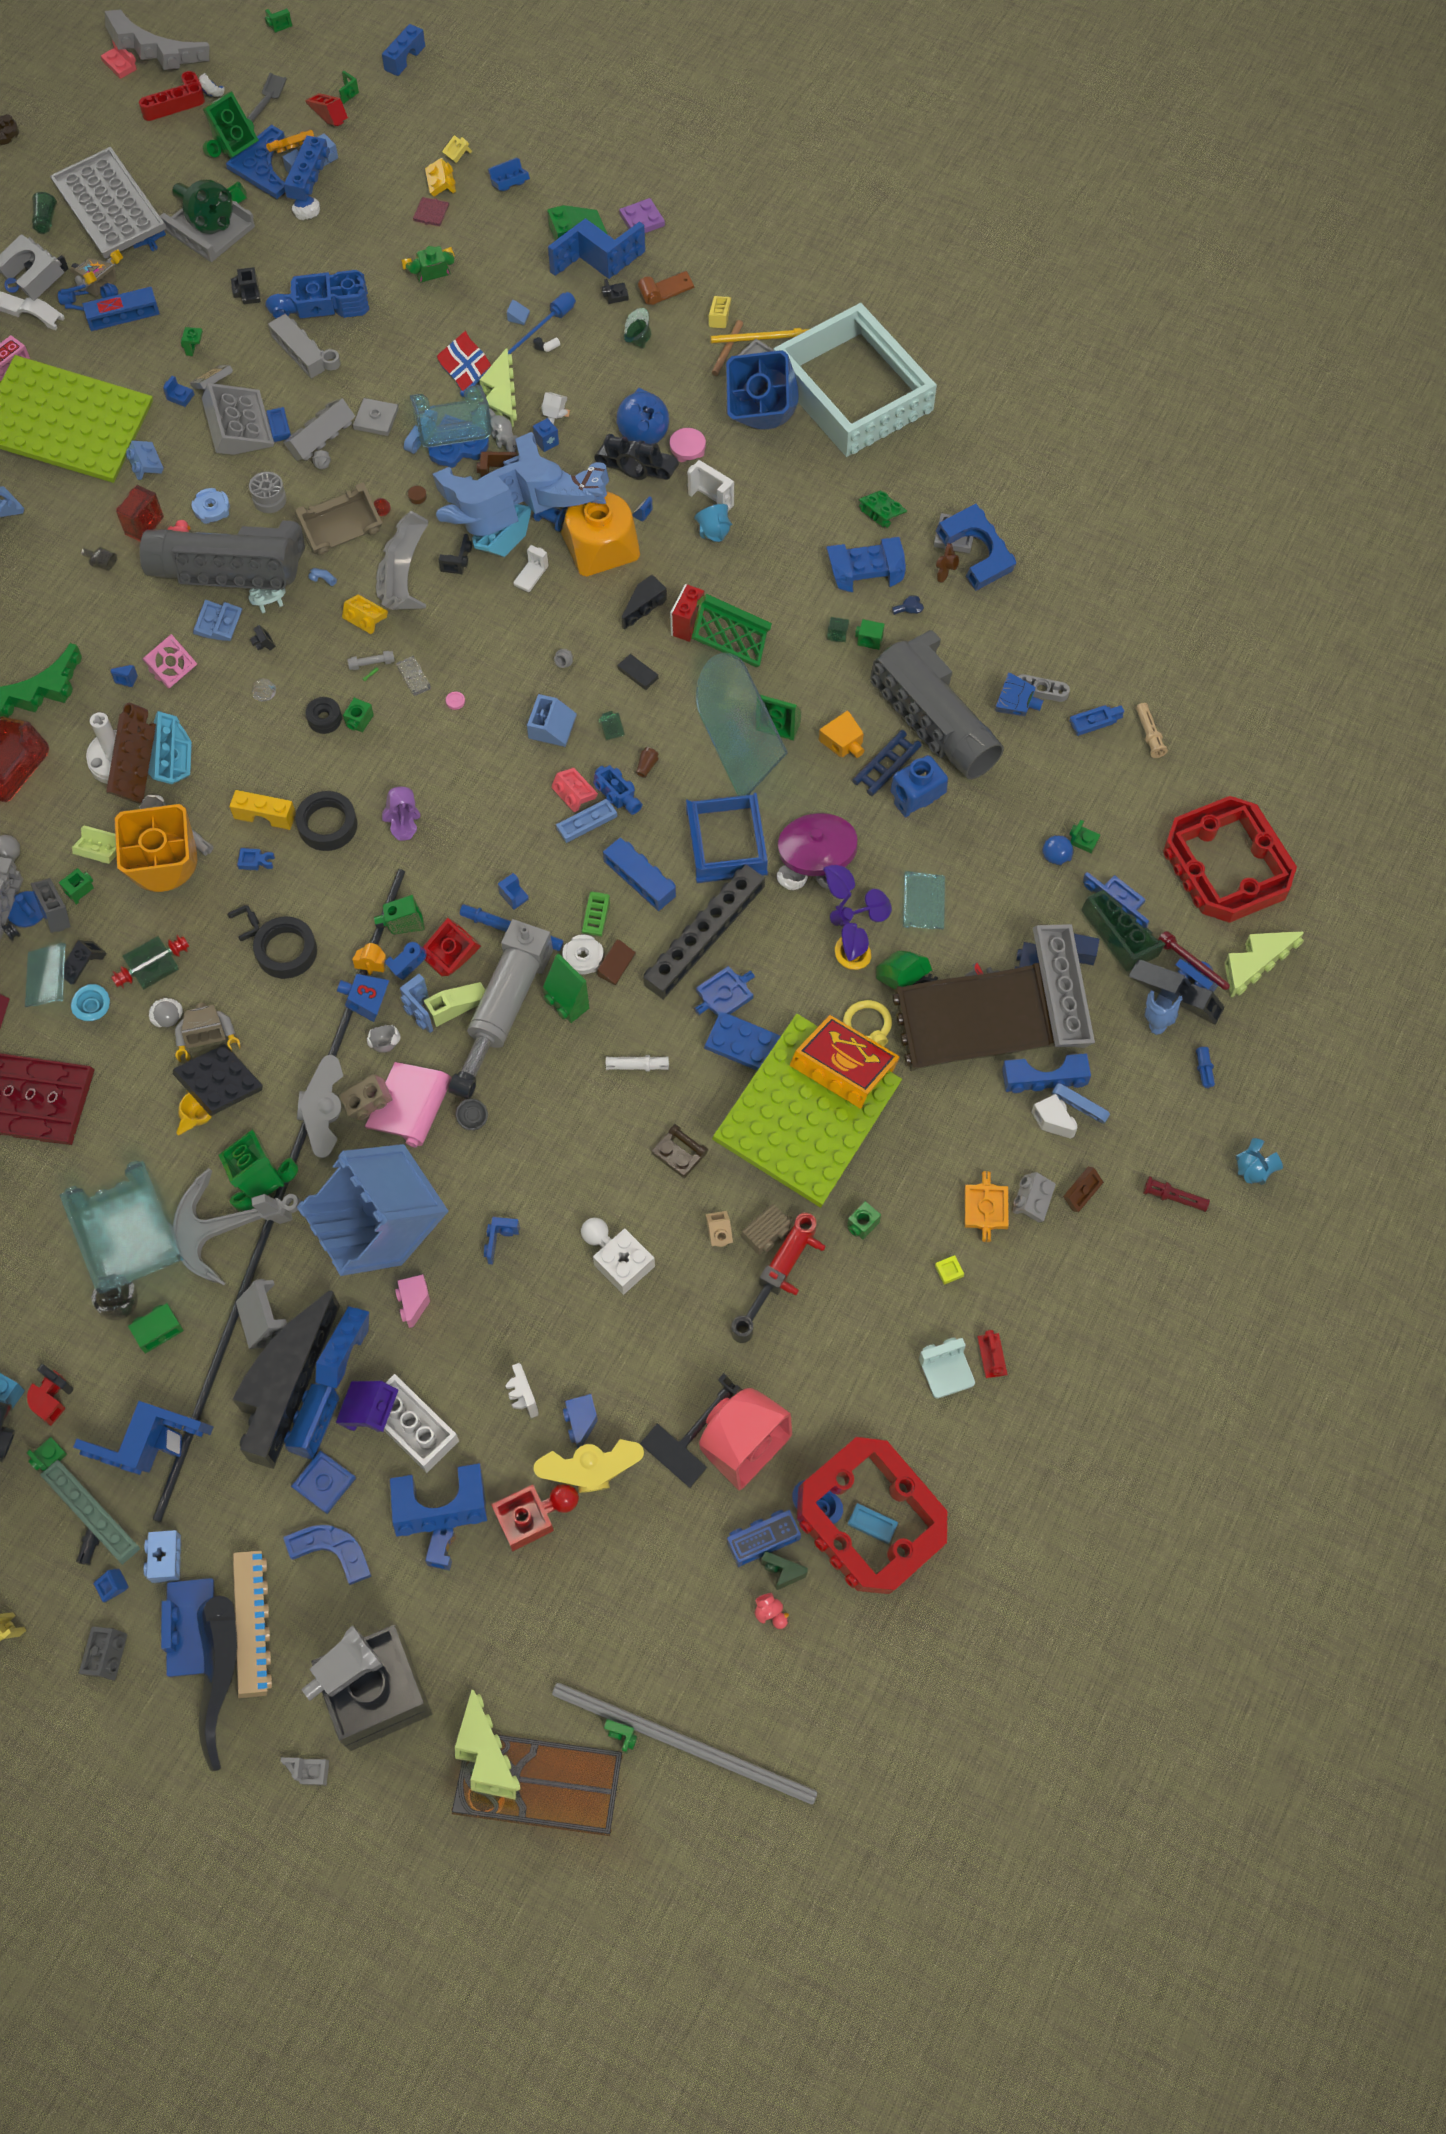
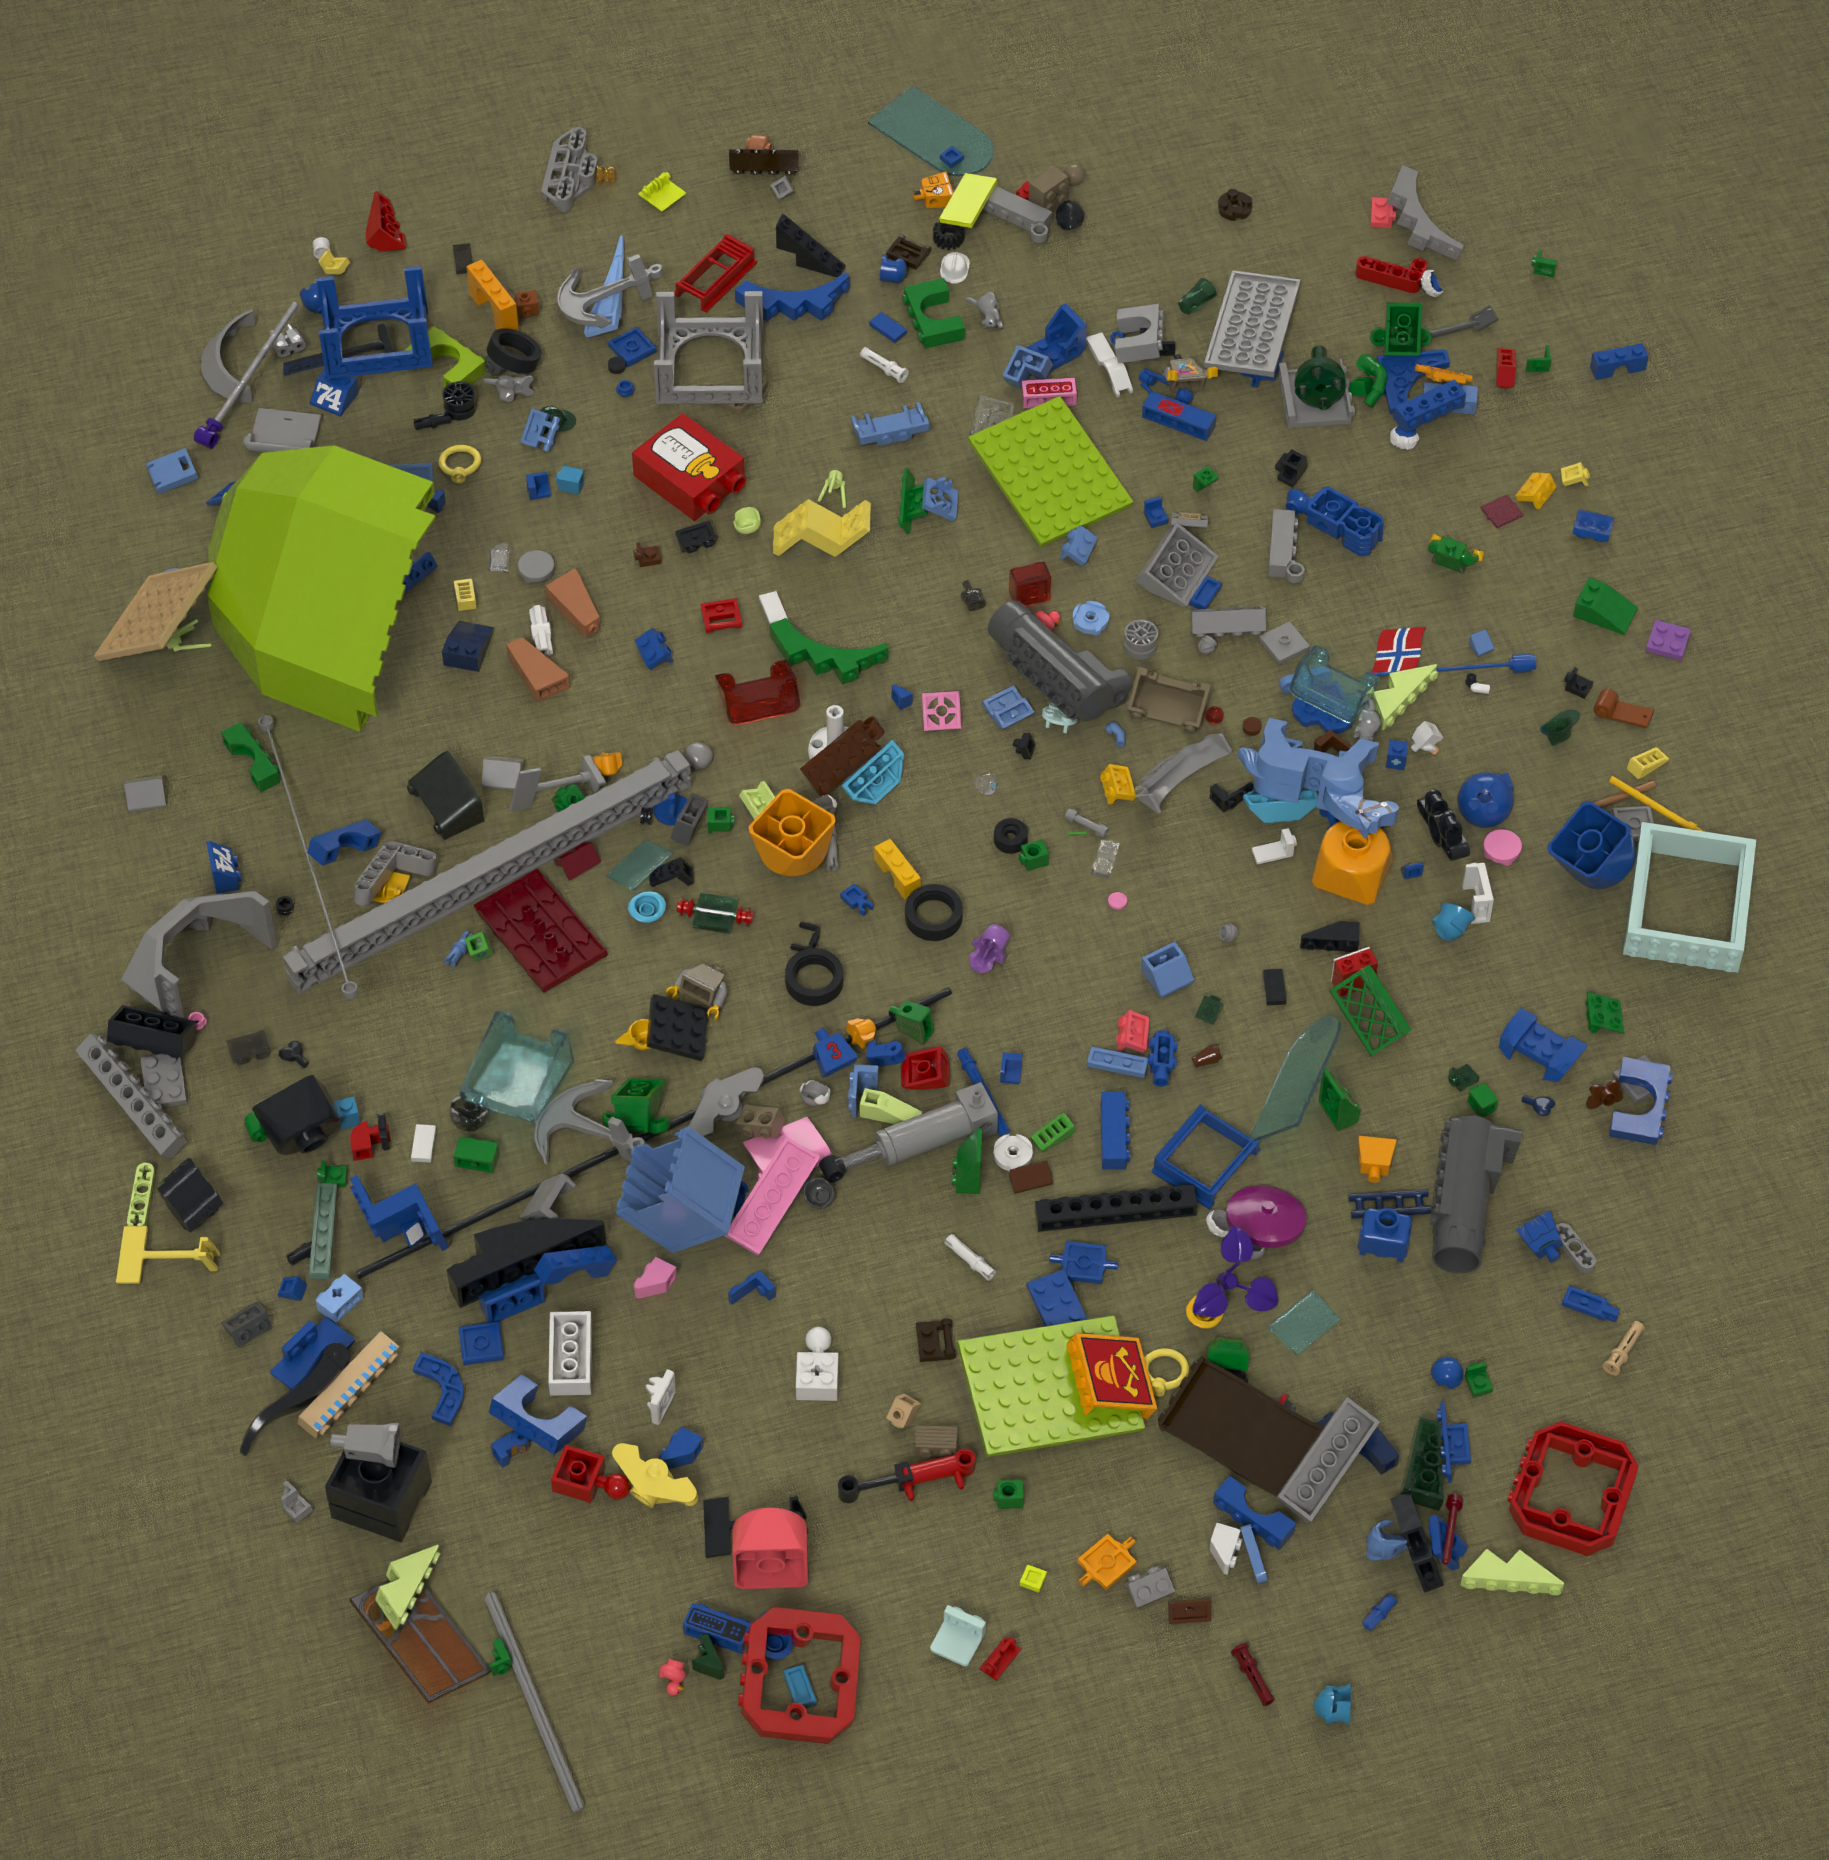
camera: 45 degrees right, 10 degrees down
(98, 1358) = (423, 1143): none -> white tile
(165, 1012) = (690, 955): light grey hair -> none
(233, 172) = (1372, 367): none -> green piece
(367, 1405) = (553, 1316): dark purple panel -> none
(439, 1145) = (772, 1196): none -> bright pink plate
(596, 248) = (1599, 651): blue bracket -> none

